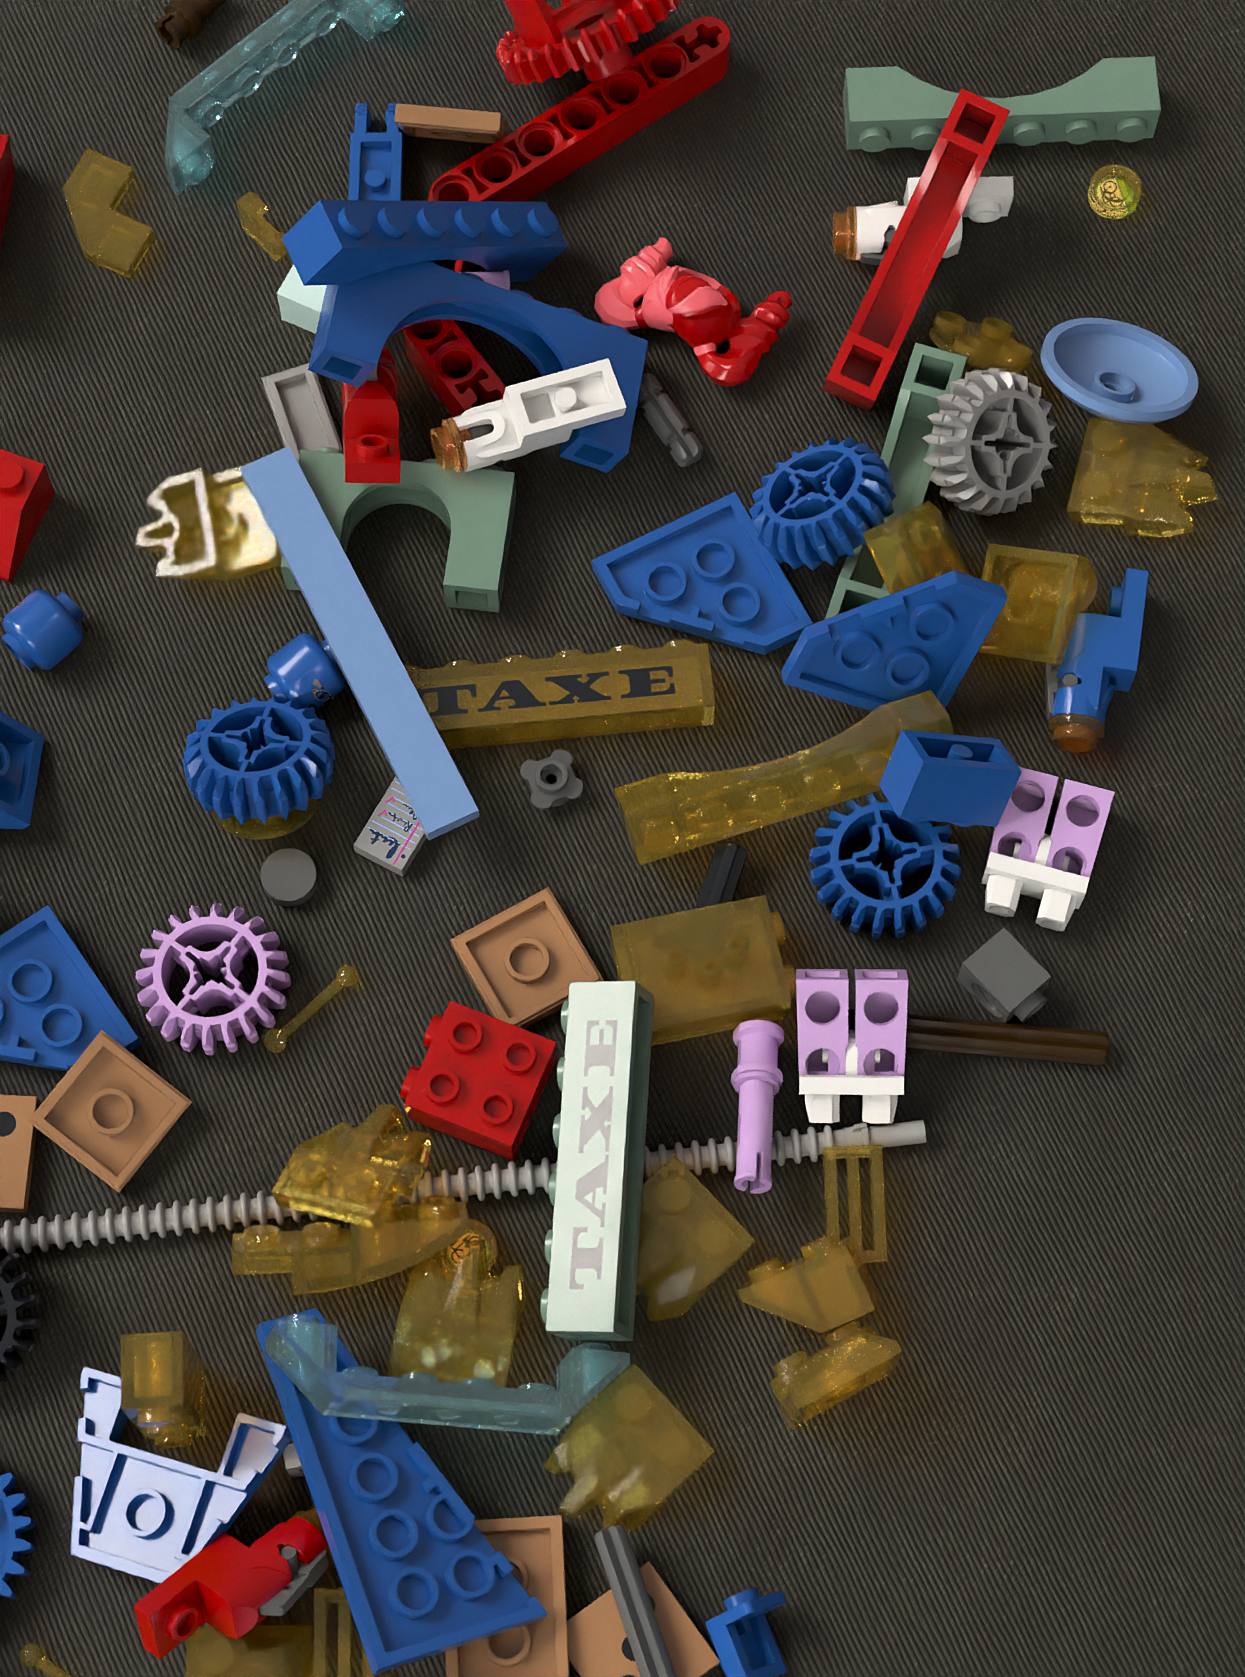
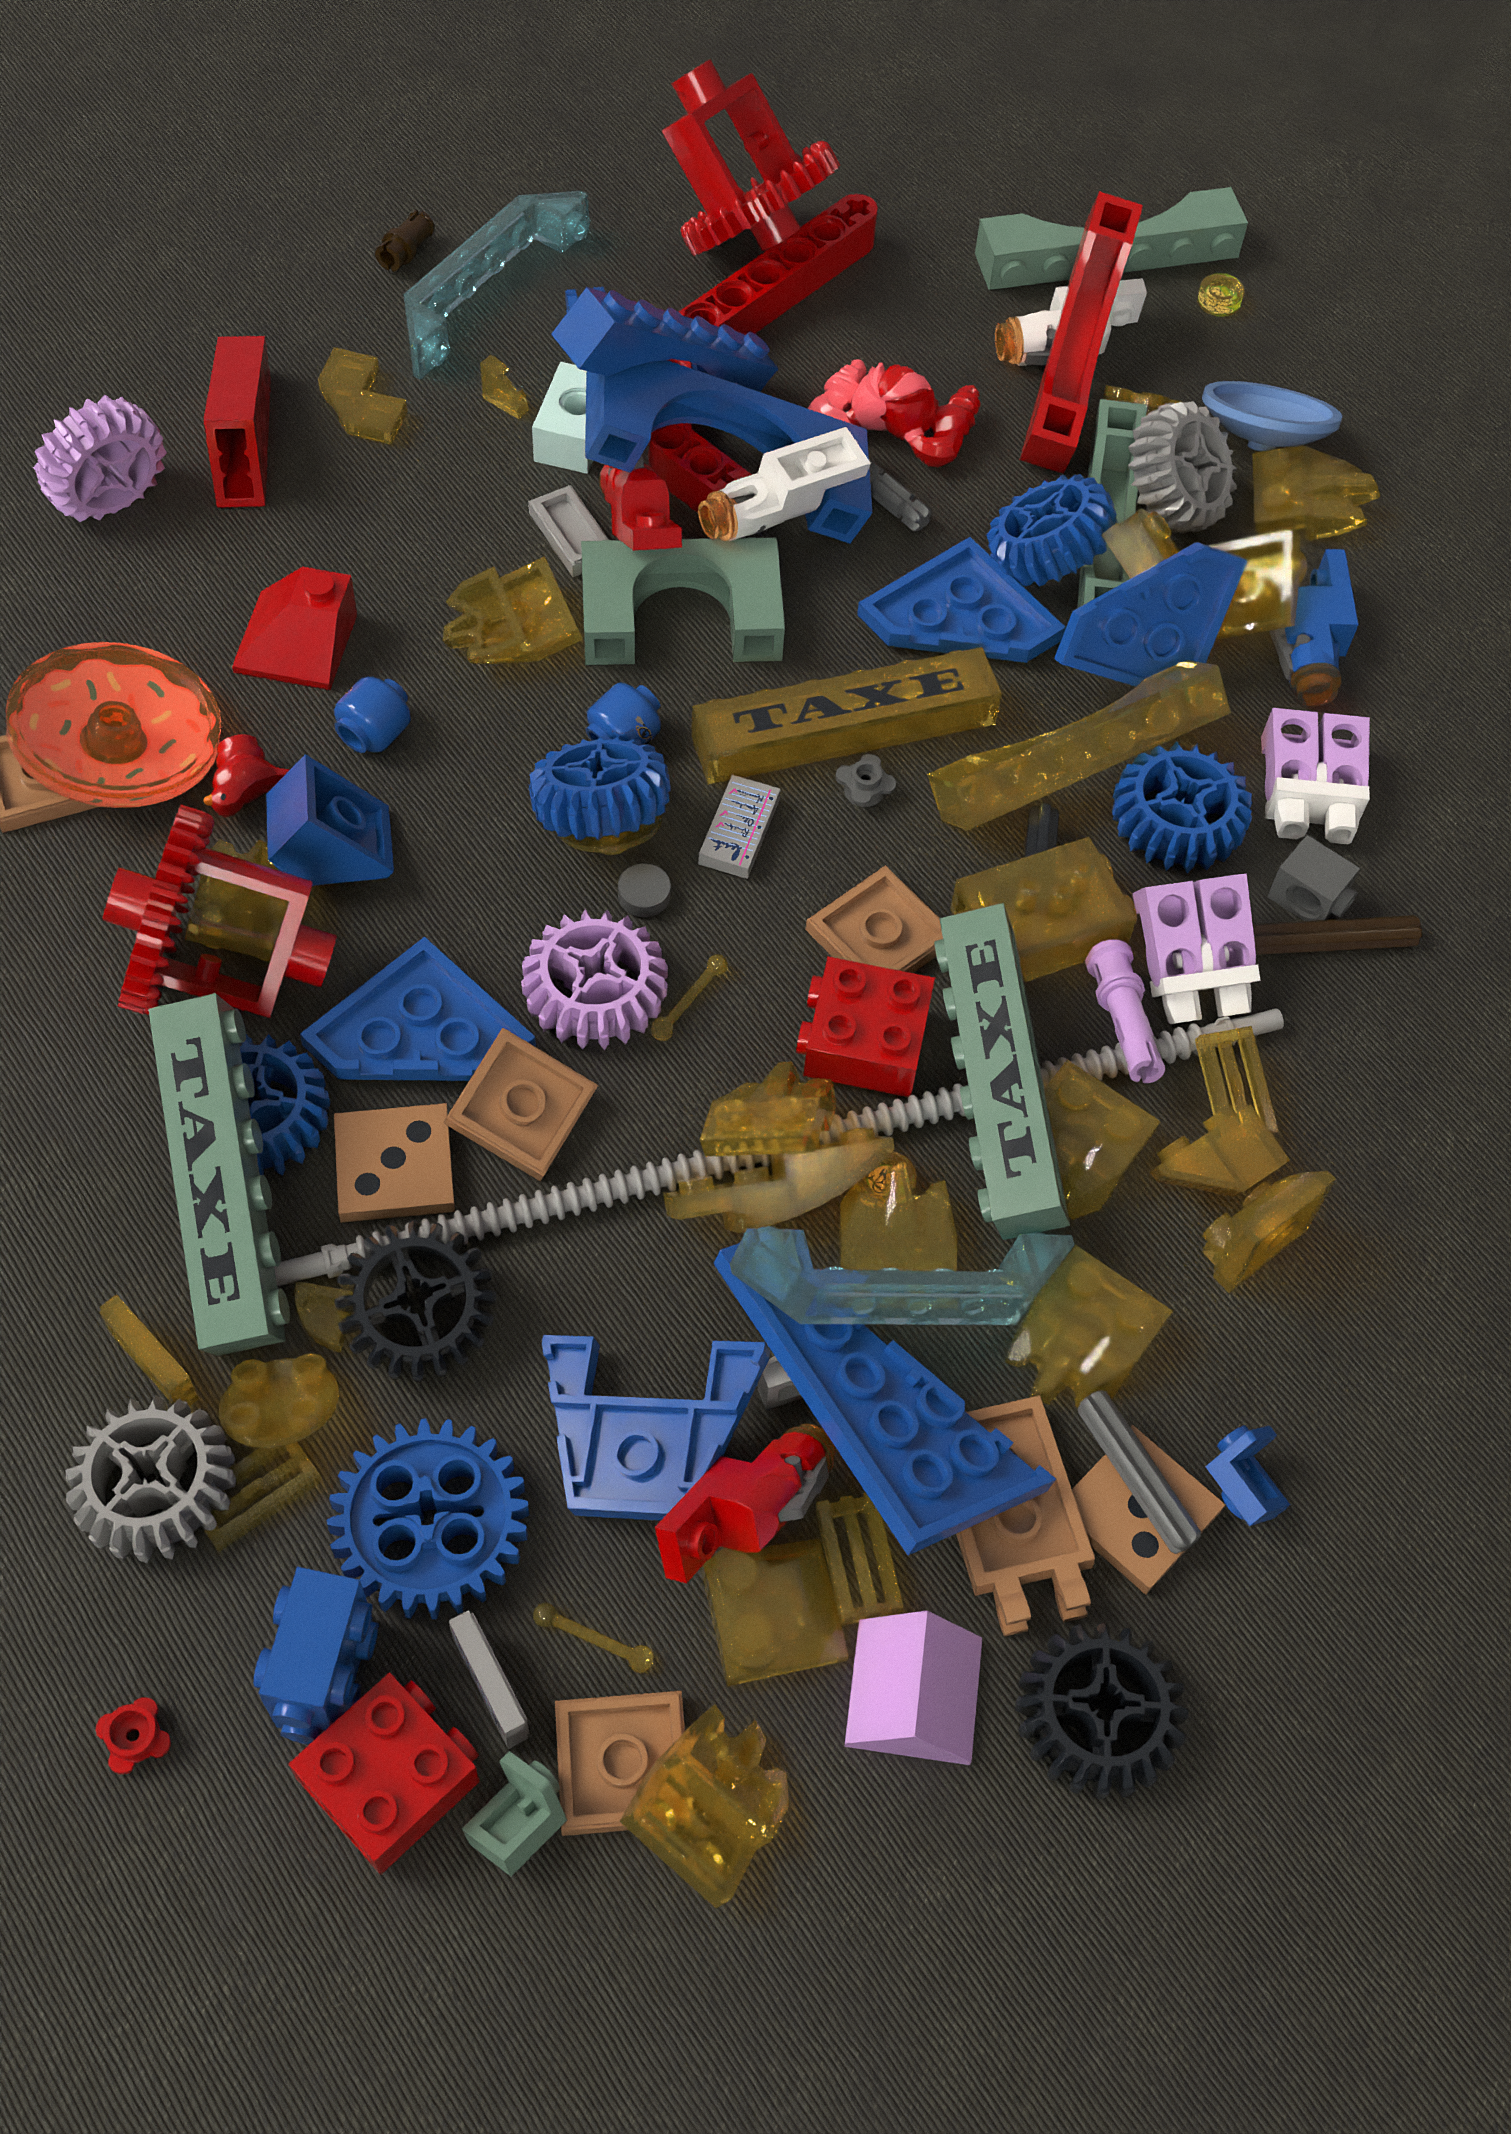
camera: 15 degrees left, 10 degrees down
(163, 1387) = (638, 1322): clear yellow brick -> none
(360, 643) = (675, 682): medium blue tile -> none
(451, 123) = (659, 283): medium nougat tile -> none
(949, 778) = (1230, 716): blue brick -> none

